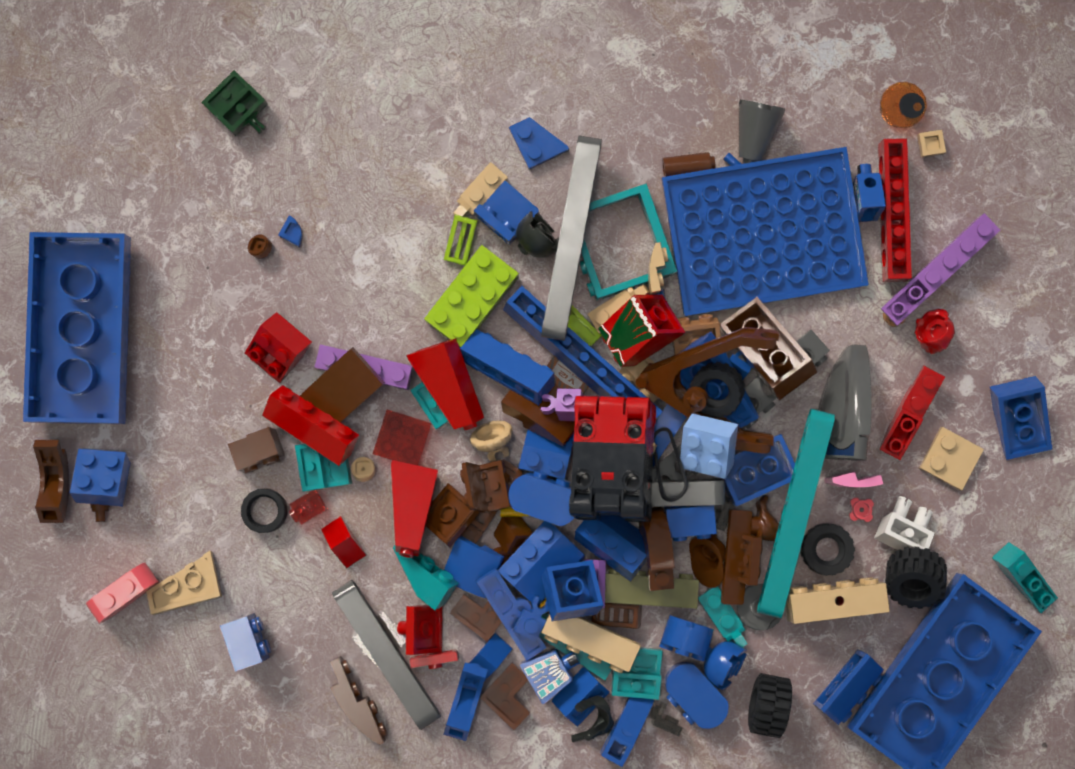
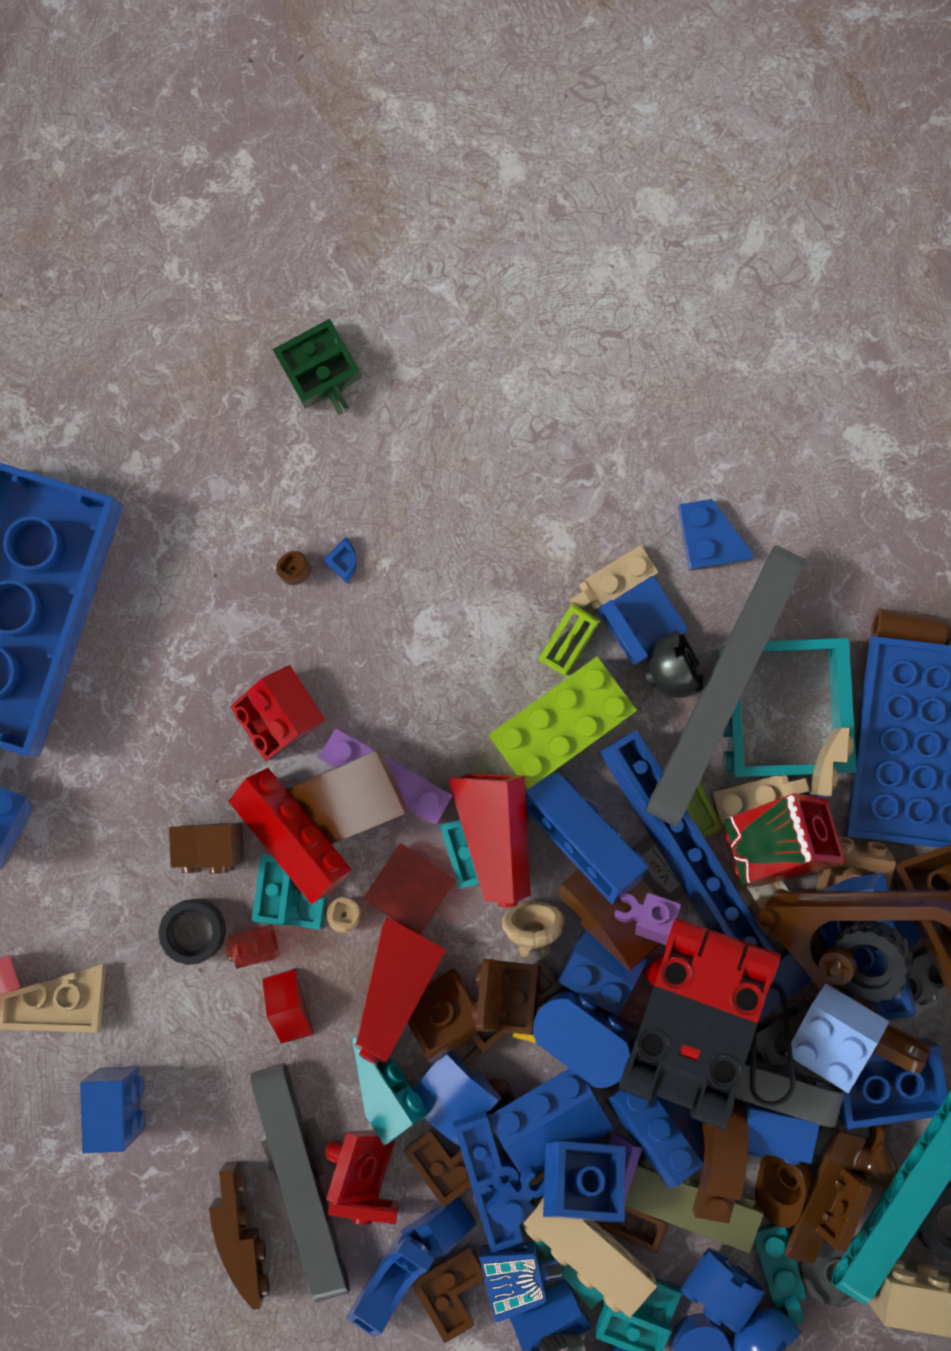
camera: 25 degrees right, 0 degrees up
(512, 533) = (522, 1067): reddish brown panel -> none

